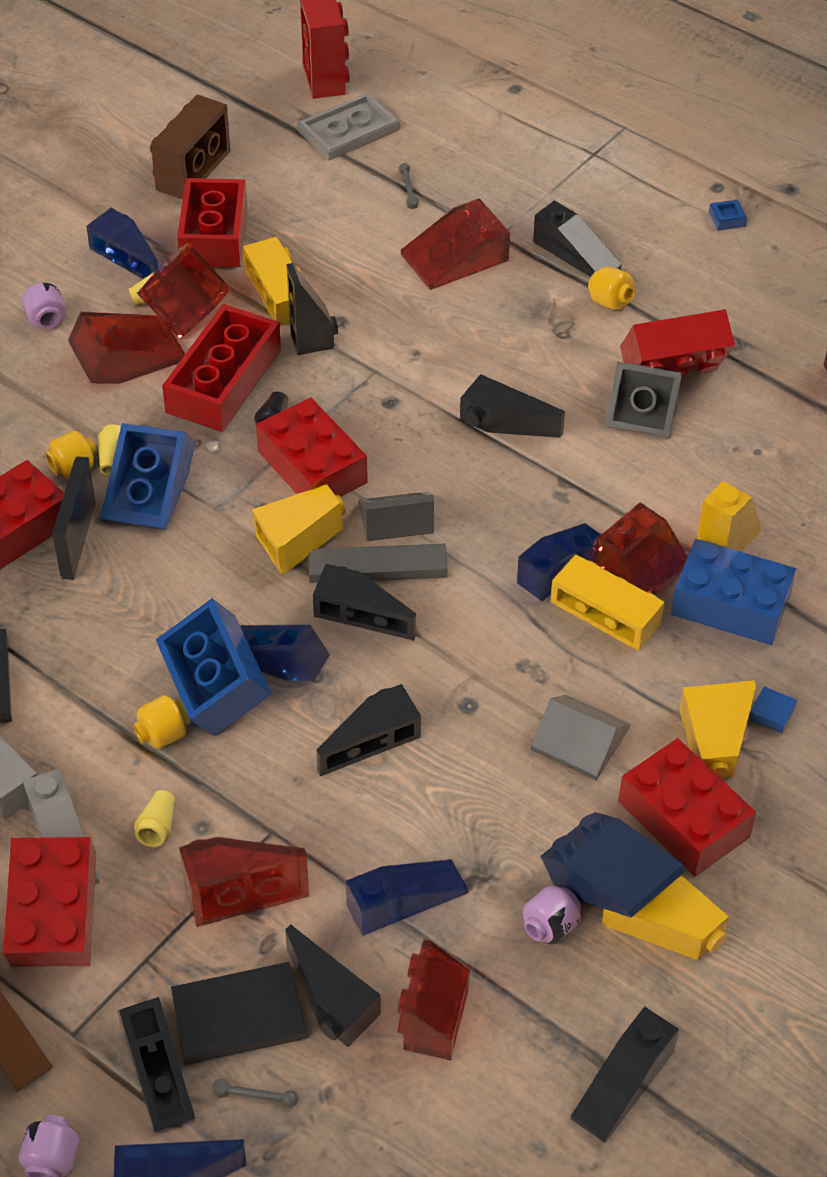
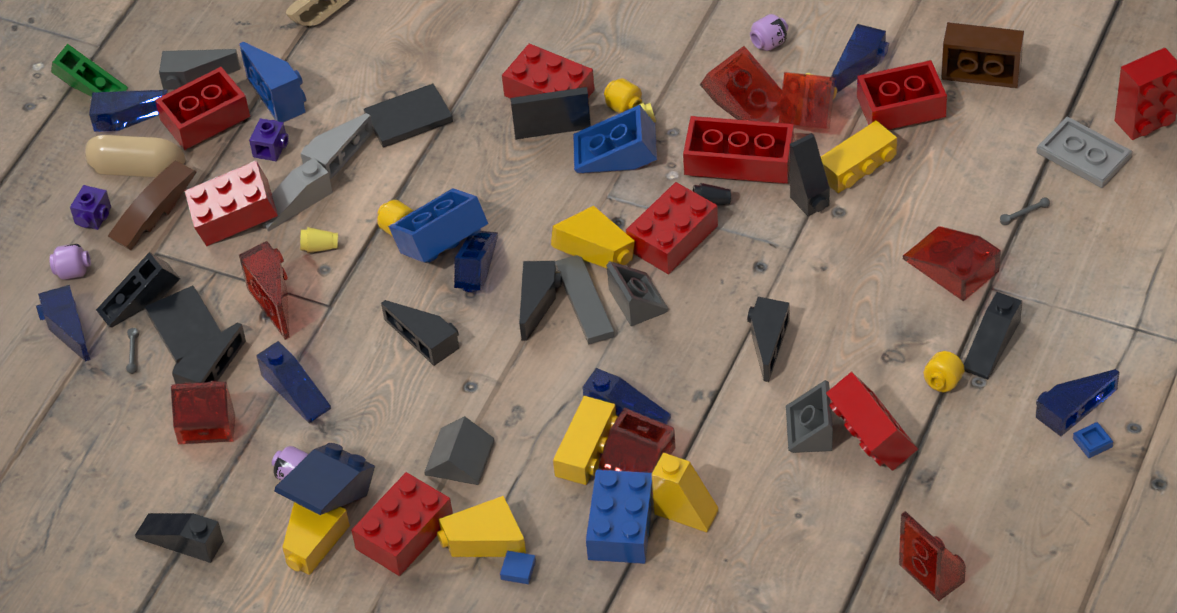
camera: 80 degrees right, 0 degrees up
(685, 213) = (1073, 400): none -> clear blue slope

